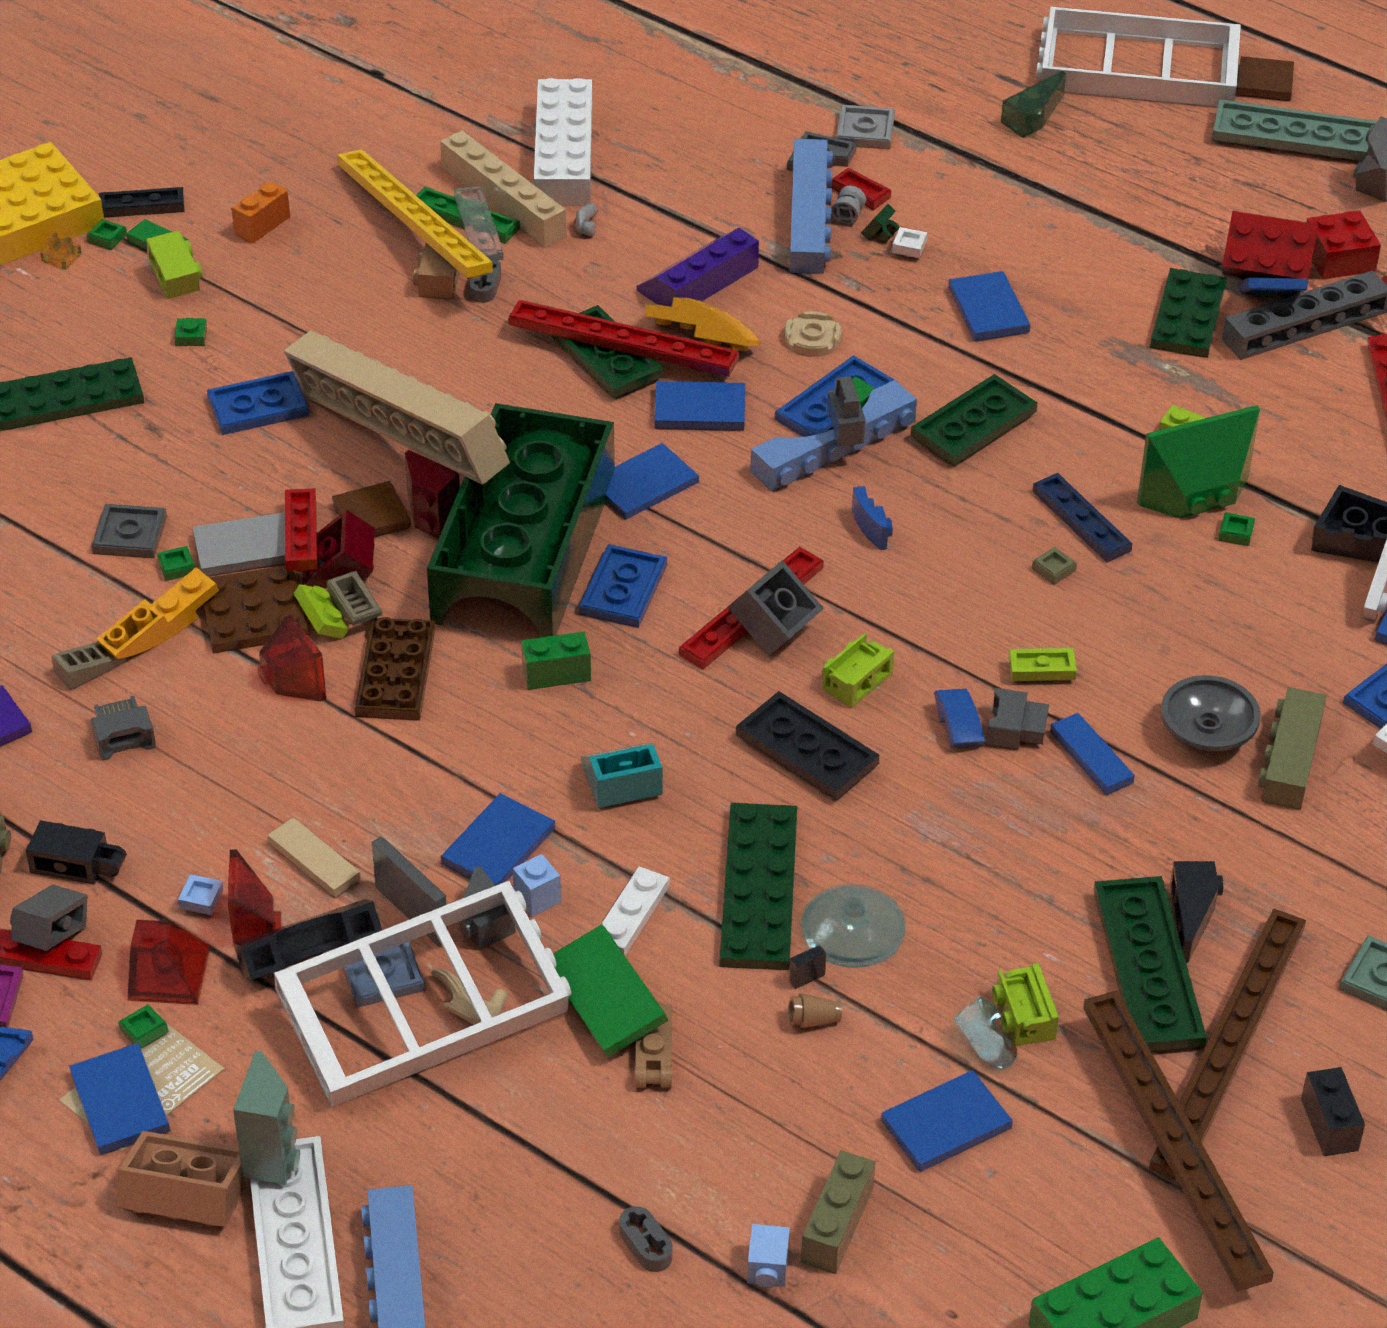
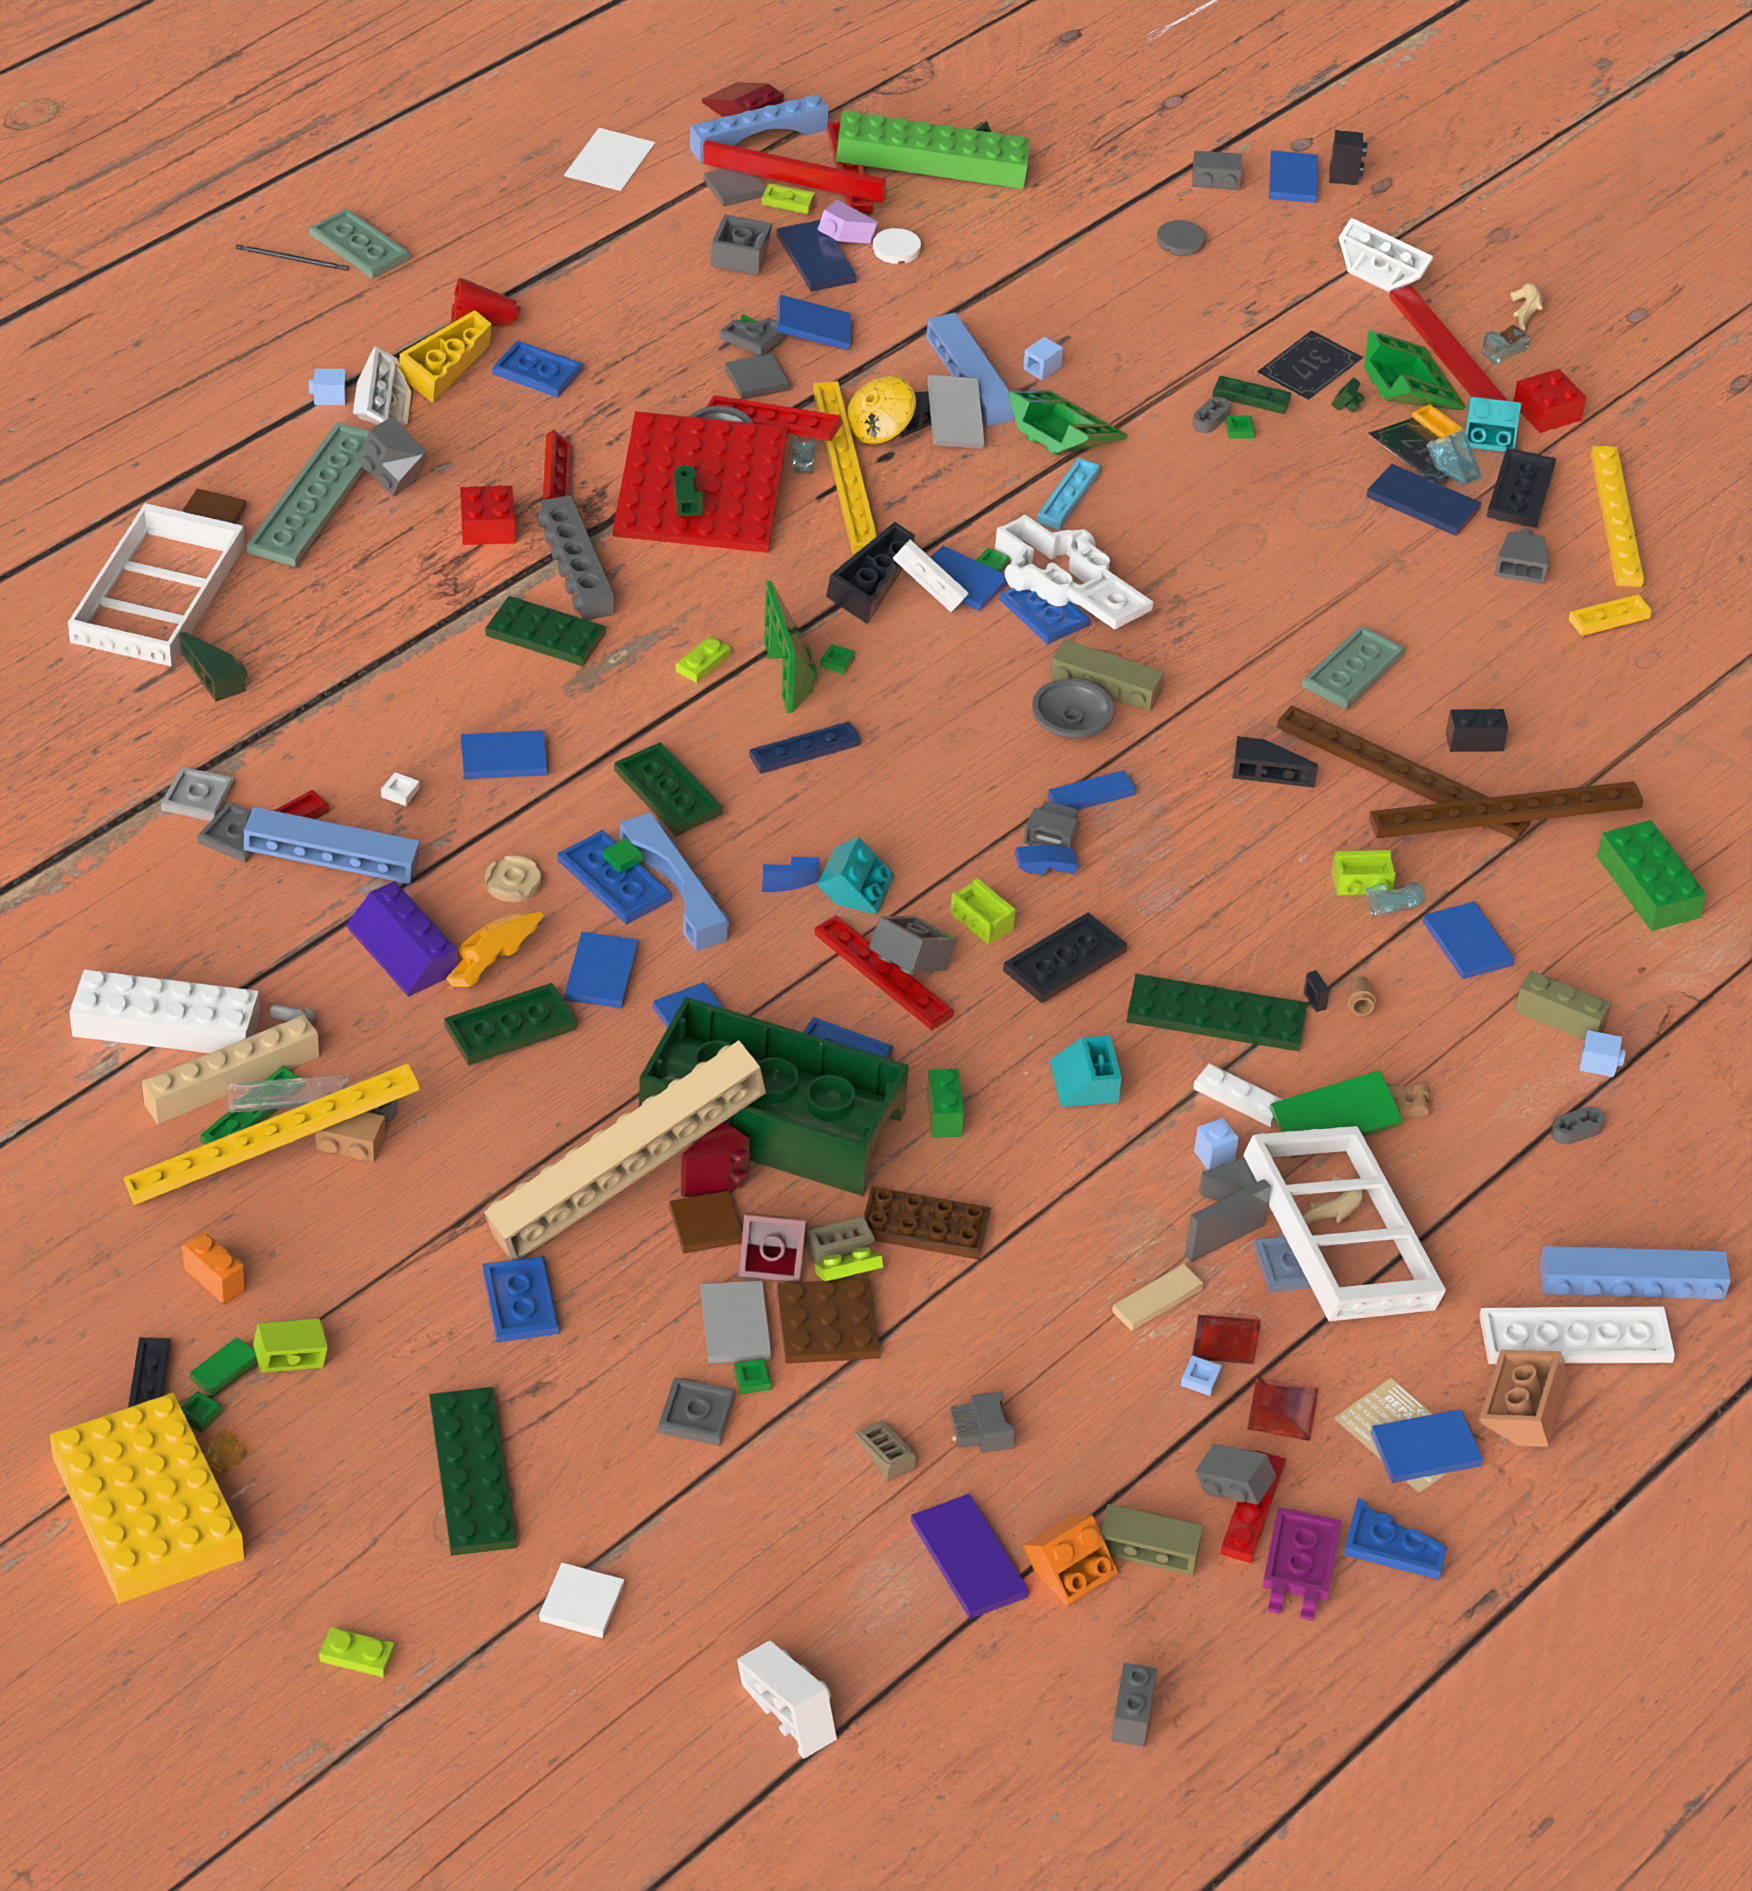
camera: 85 degrees left, 0 degrees up
(72, 853) = (1142, 1465): black brick -> none
(143, 1026) = (1347, 1426): green tile -> none
(157, 622) = (837, 1387): light orange slope -> none
(190, 332) = (392, 1346): green plate -> none
(265, 1124) = (1504, 1309): sand green slope -> none
(292, 663) = (928, 1280): clear red slope -> none
(301, 530) = (739, 1266): red plate -> none
(307, 937) = (1255, 1270): black arch -> none
(498, 840) = (1152, 1171): blue tile -> none
(624, 338) = (505, 1004): red tile -> none
(846, 413) = (681, 849): dark grey piece -> none
(848, 205) = (328, 814): light grey wheel -> none
(854, 925) = (1263, 963): clear light blue dish -> none
(879, 568) = (856, 877): none -> teal slope
(881, 225) = (367, 803): dark green tile -> none
(1042, 664) = (989, 800): lime plate -> none
(1054, 565) = (863, 775): olive tile -> none
(1150, 962) = (1316, 798): dark green plate -> none
(1268, 247) = (496, 553): red brick -> none
(1273, 286) = (551, 561): blue tile -> none

